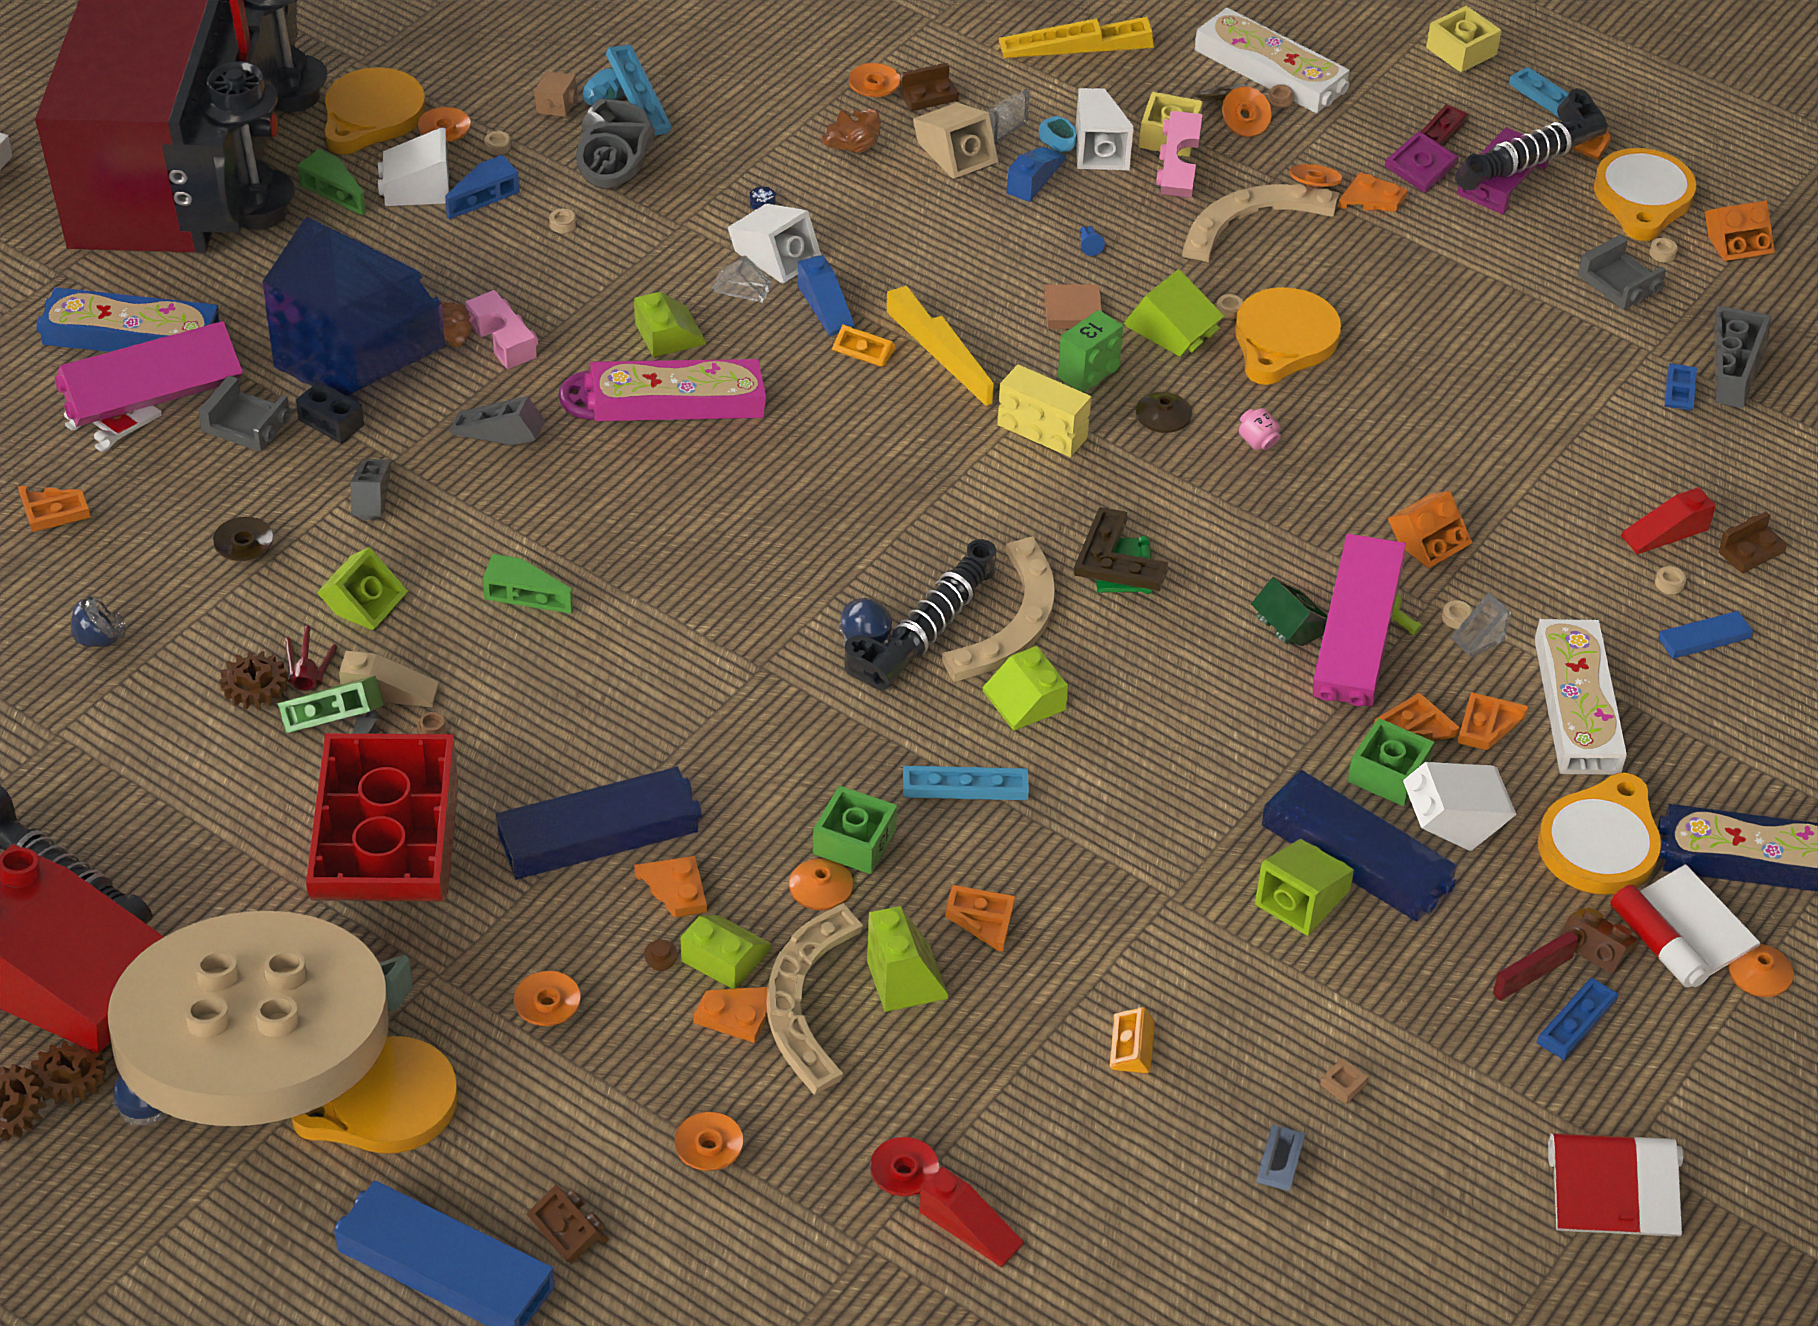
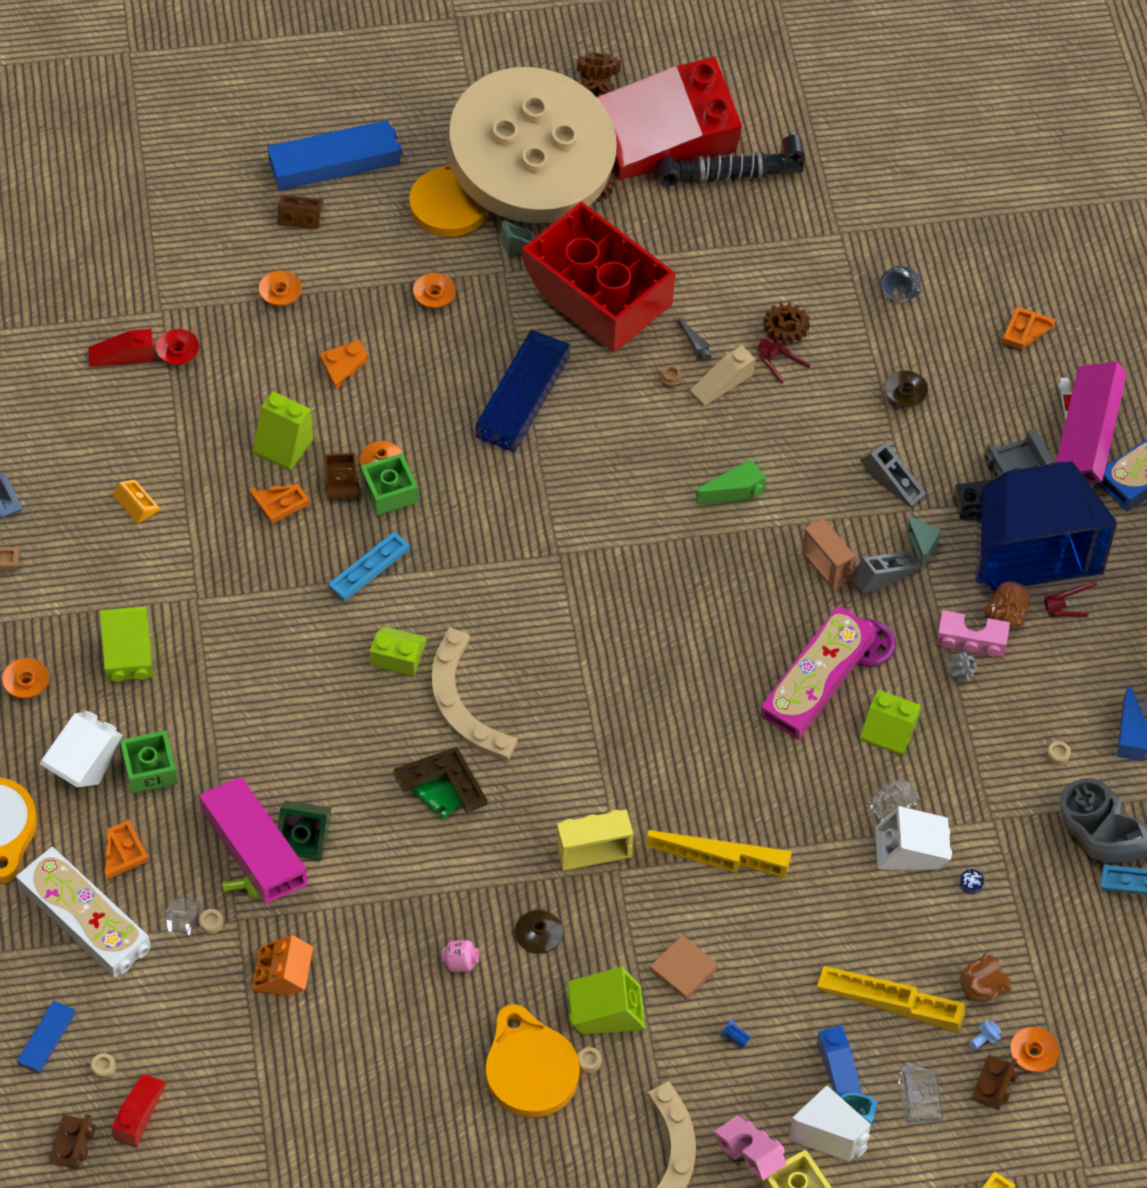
camera: 135 degrees right, 10 degrees up
(331, 704) = (724, 339): bright green slope -> none
(363, 590) = (807, 412): lime slope -> none
(431, 417) = (923, 539): none -> sand green slope
(535, 456) = (828, 554): none -> nougat window
(549, 312) = (962, 666): none -> light grey gear
(660, 954) = (411, 357): reddish brown plate -> none
(675, 884) = (449, 397): orange wing -> none
(722, 949) = (384, 381): lime slope -> none
(785, 995) = (326, 378): tan plate -> none
(824, 294) = (832, 828): blue slope -> none
(863, 346) = (767, 818): light orange slope -> none
(866, 618) = (528, 613): dark blue hair -> none
(889, 114) = (989, 1032): none -> light blue plate
(890, 883) = (341, 476): none -> reddish brown piece
(912, 638) = (493, 625): black piece -> none
(933, 178) = (893, 997): none -> yellow slope
(957, 138) = (918, 1038): tan slope -> none
(1090, 351) = (617, 913): bright green brick -> none
(1382, 856) = (123, 698): clear blue brick -> none
(1421, 718) = (164, 813): orange wing -> none
(1441, 938) = (25, 670): none -> orange dish

